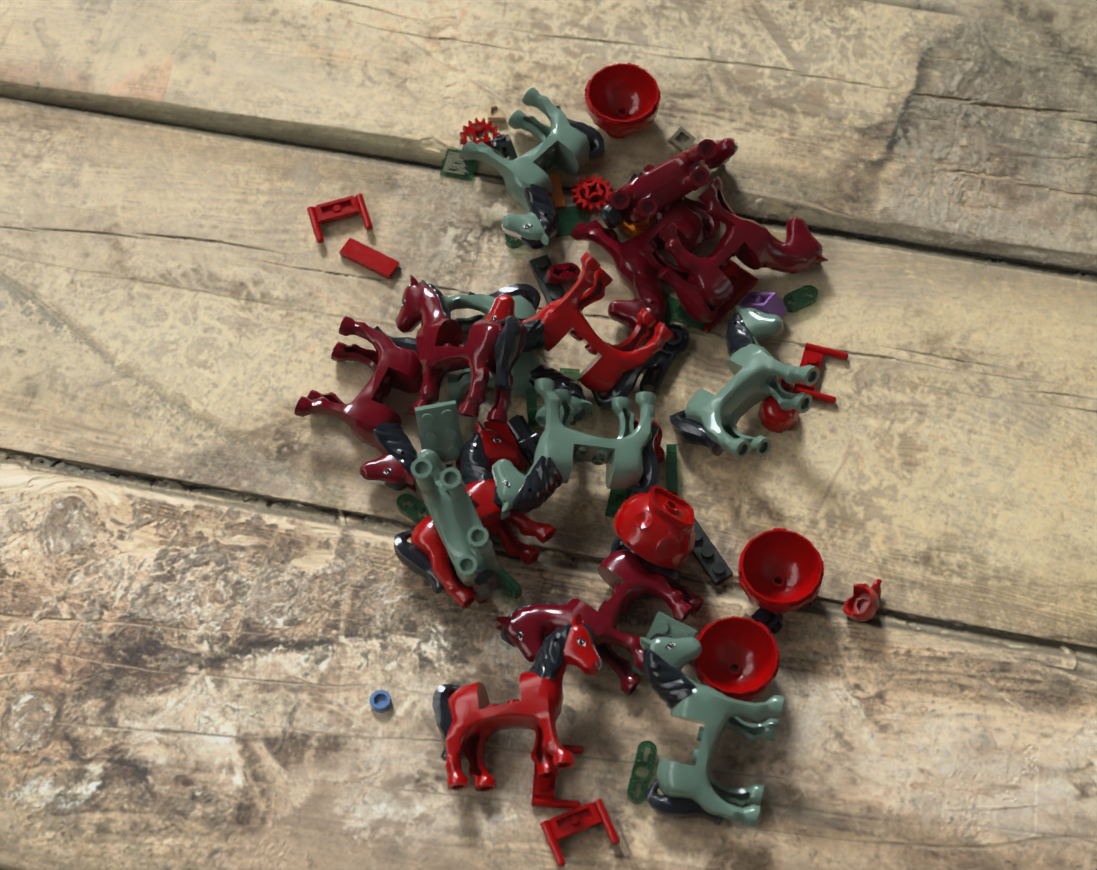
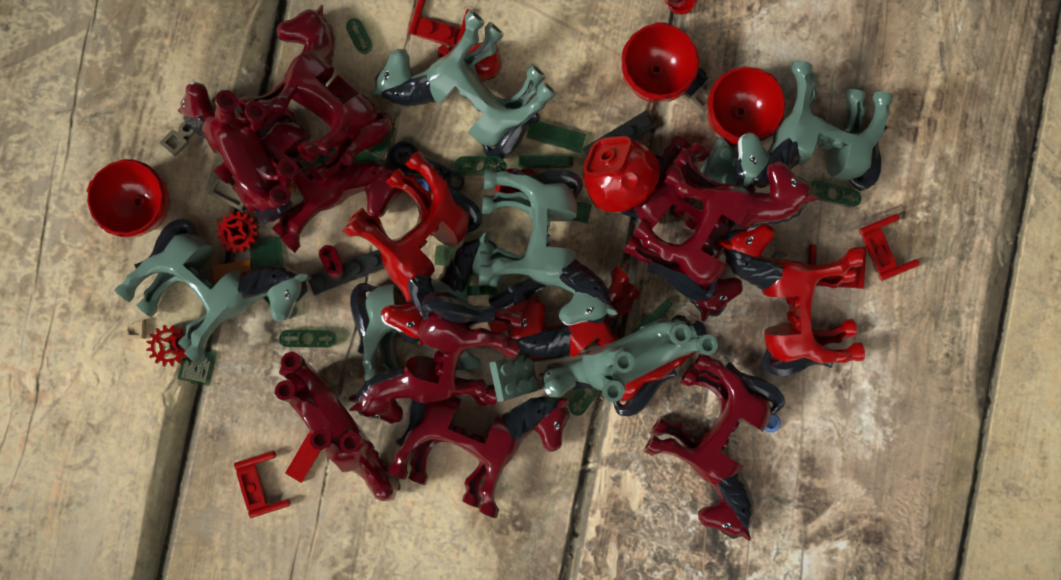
camera: 95 degrees left, 25 degrees up
(391, 261) = (333, 426): none -> dark red animal
(403, 666) = (740, 398): none -> dark red animal
(480, 249) = (294, 333): none -> clear green beam
(504, 141) = (177, 321): black bracket -> none
(557, 589) = (686, 264): none -> dark red animal
(664, 405) = (473, 161): none -> clear green beam
(701, 482) = (556, 136): none -> clear green tile
(765, 302) = (368, 68): medium lavender slope -> none

